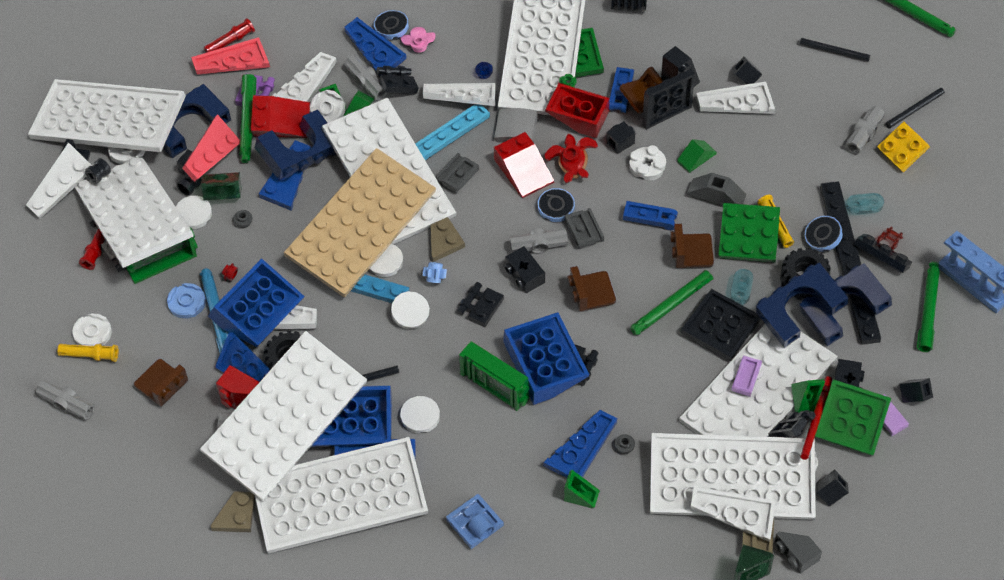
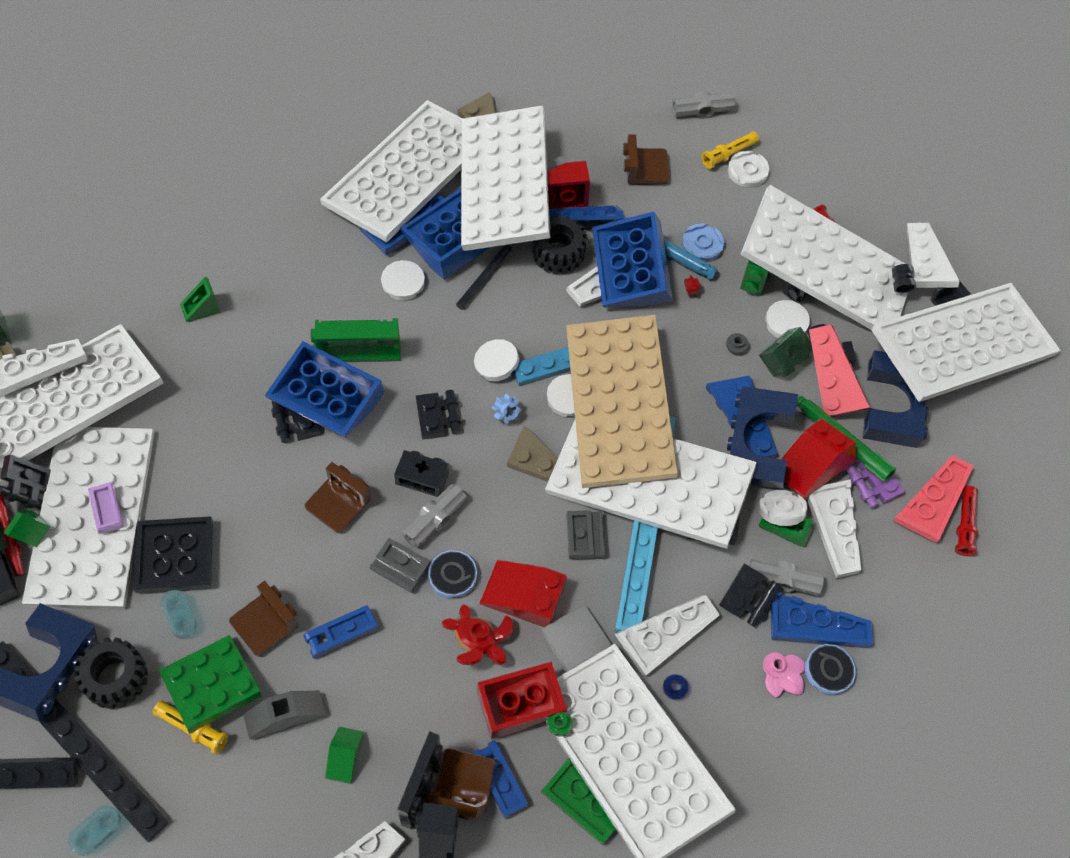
camera: 135 degrees right, 5 degrees up
(358, 102) = (756, 537): green slope -> none
(474, 521) = (276, 224): medium blue plate -> none
(582, 446) = (228, 340): blue wing -> none
(620, 137) = (447, 707): black brick -> none
(624, 449) = (190, 378): dark grey plate -> none
(650, 154) = (397, 714): white plate -> none
(671, 302) = (232, 582): green piece -> none
(814, 282) = (82, 641): dark blue arch -> none
(823, 233) = (121, 746): black tile -> none
(885, 235) = (29, 806): clear red piece -> none

